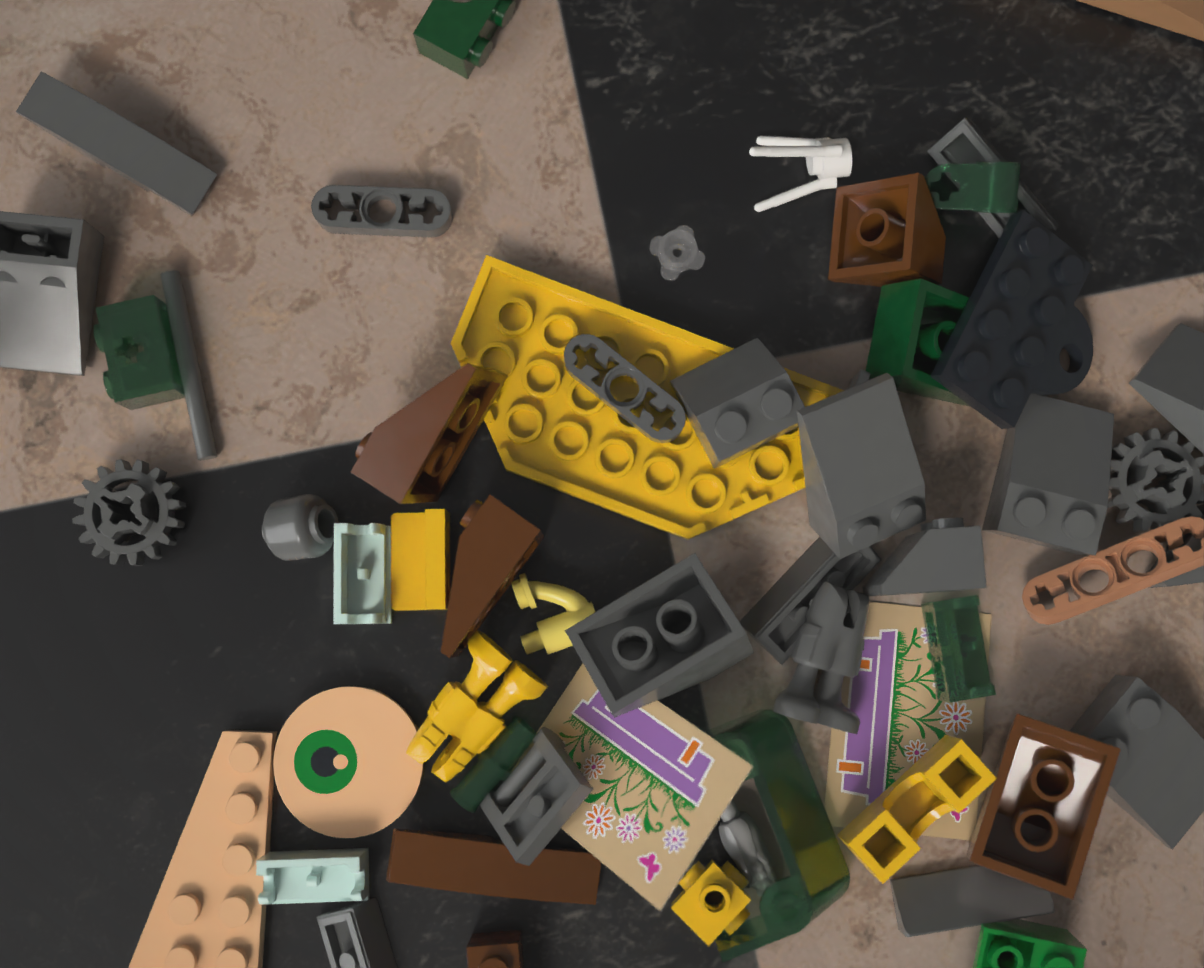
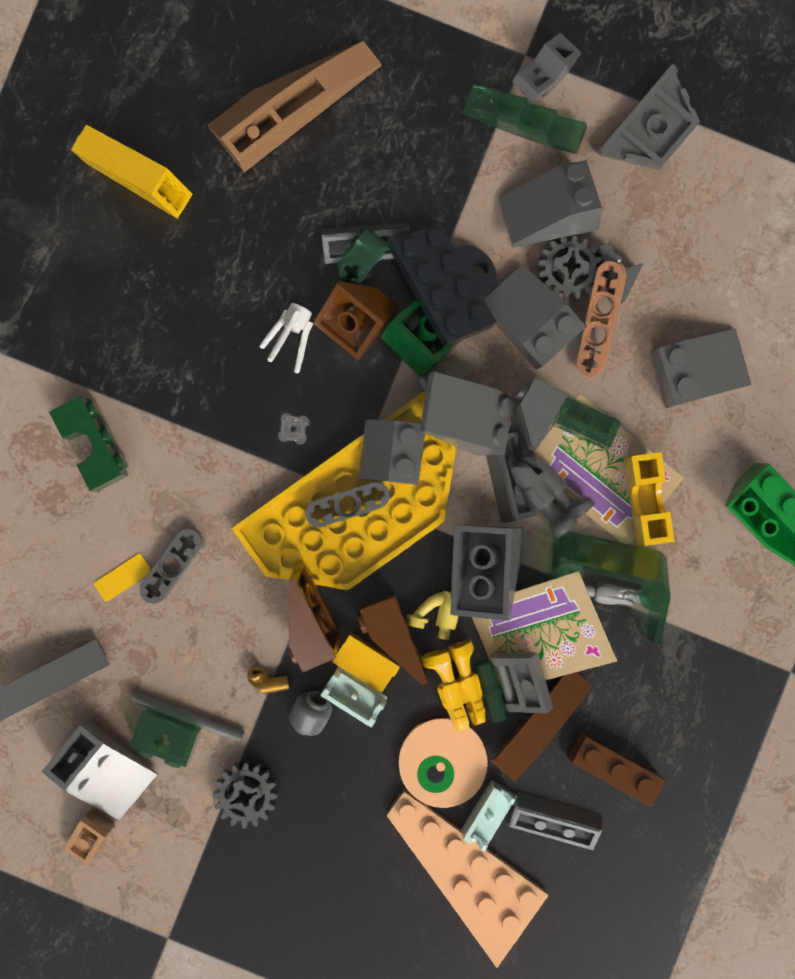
camera: 55 degrees left, 5 degrees up
(303, 441) = (265, 682): none -> pearl gold arm
(323, 158) = (122, 577): none -> yellow sticker
(710, 919) = (633, 637): yellow brick -> none
(963, 900) = (708, 499): dark grey slope -> none
(1043, 805) = (689, 437): reddish brown slope -> none

